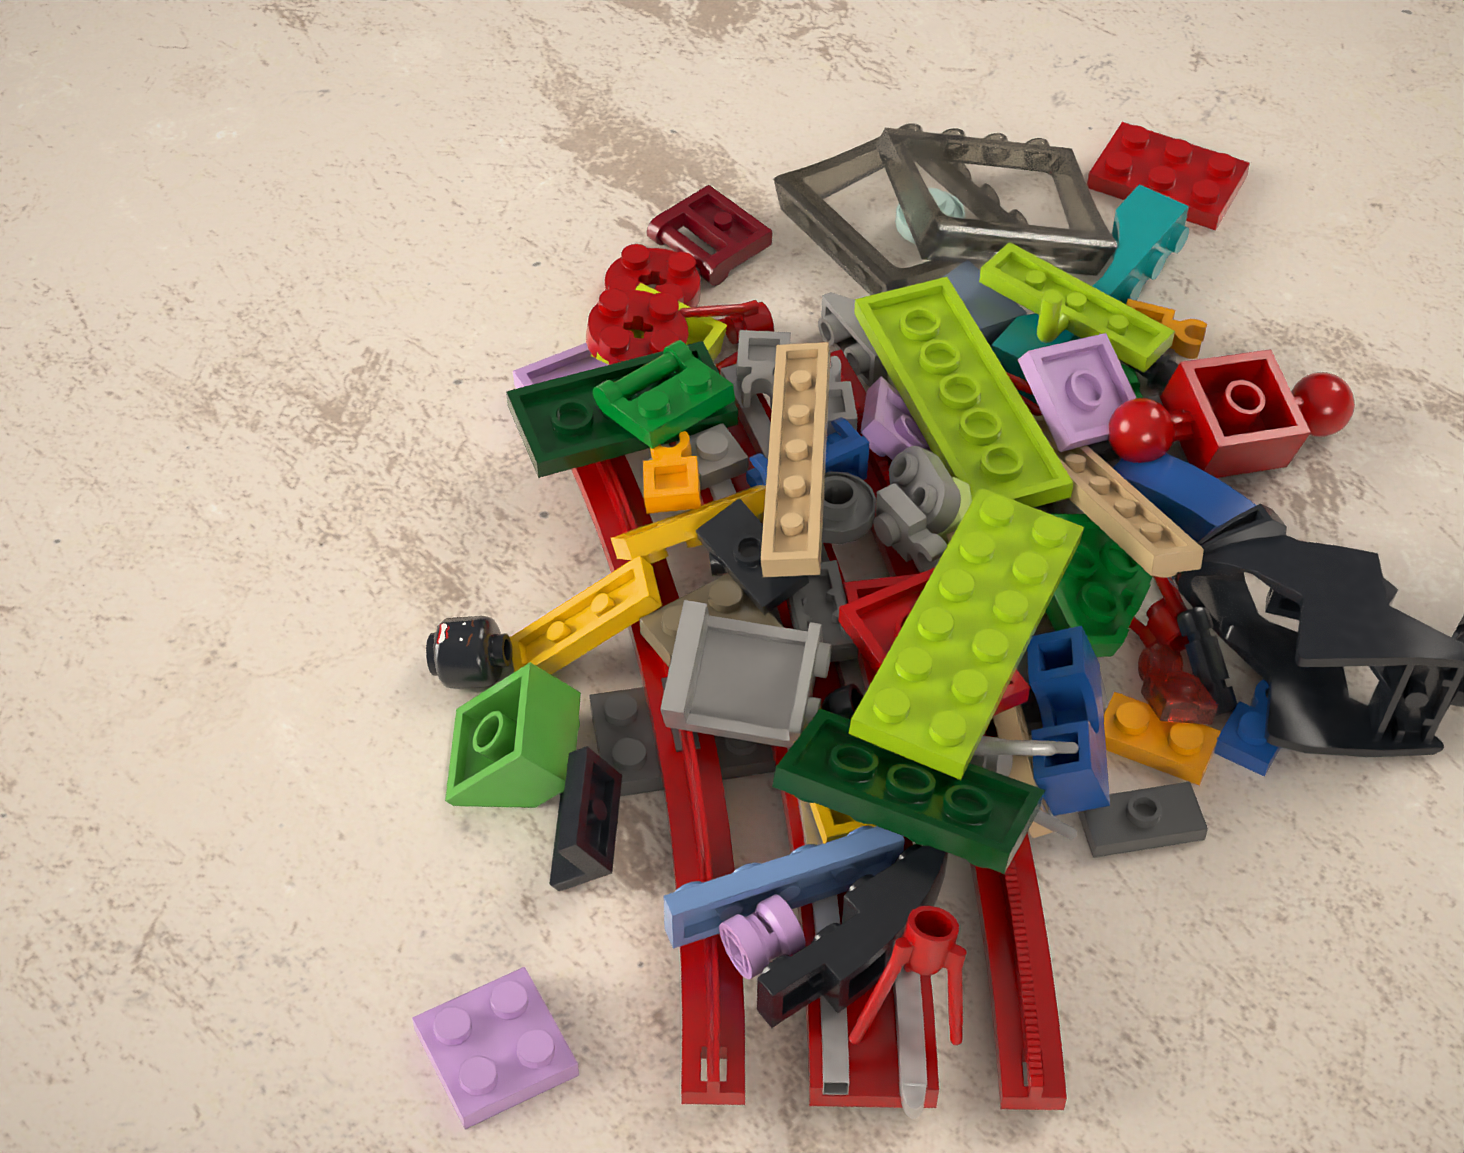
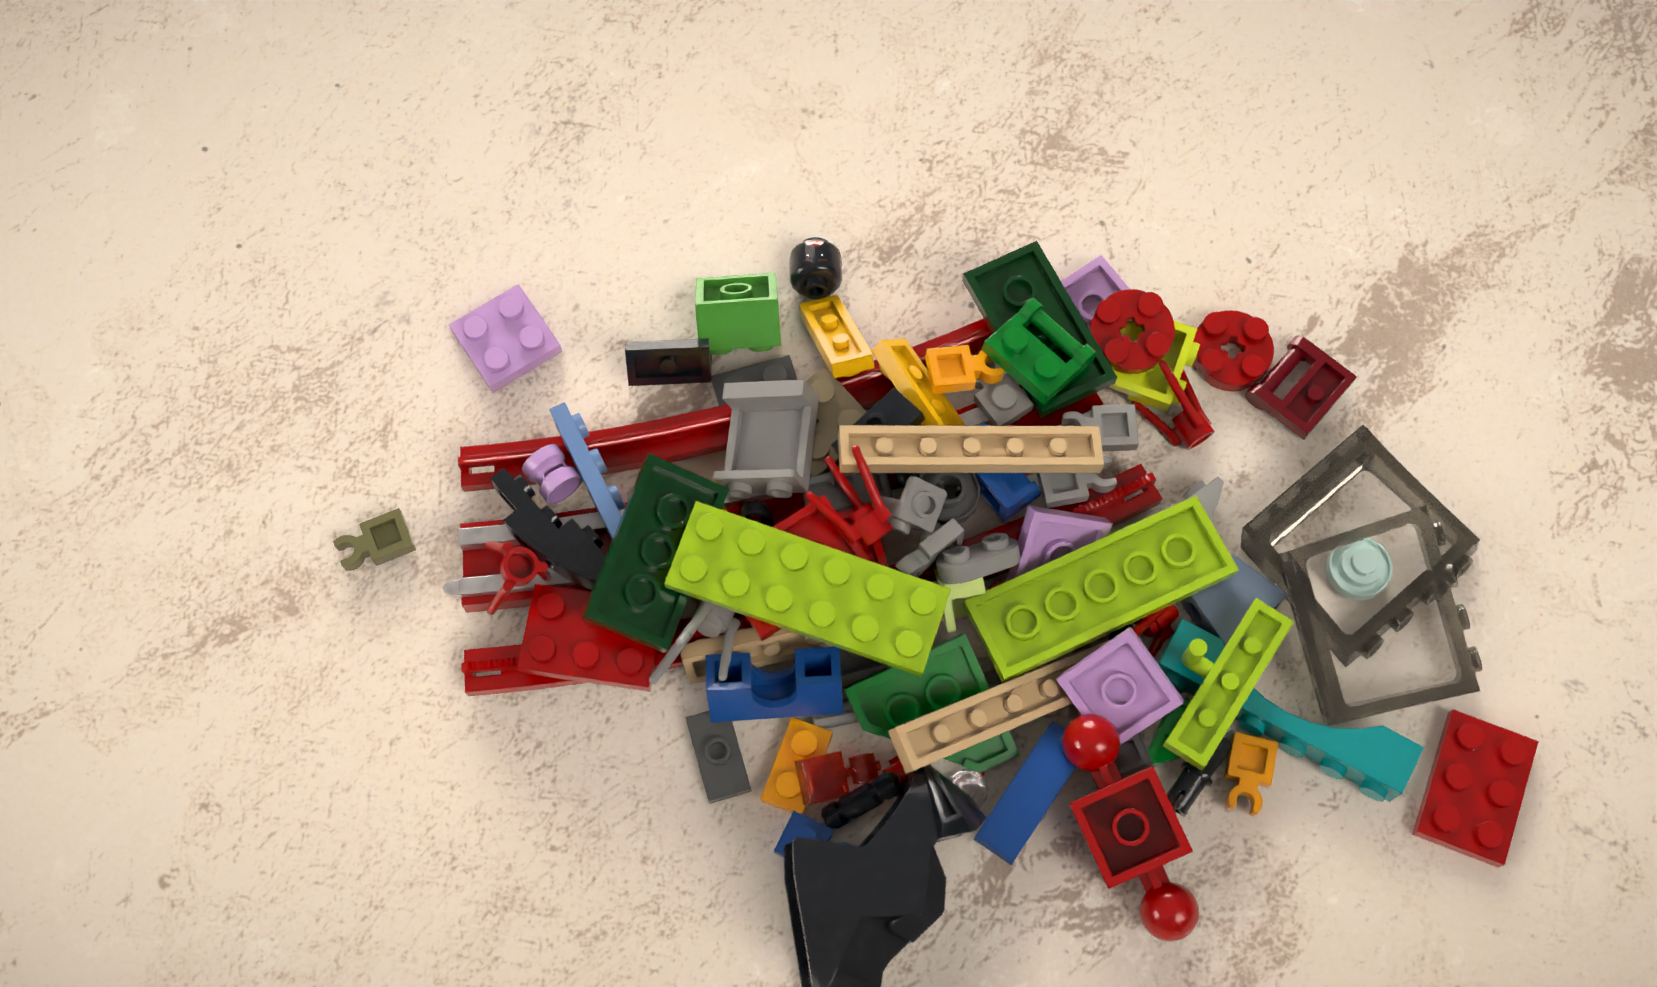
camera: 85 degrees right, 20 degrees up
(867, 544) = (917, 507): none -> light grey bracket
(881, 566) = (868, 522): none -> red plant
(1012, 920) = (570, 648): none -> red plate

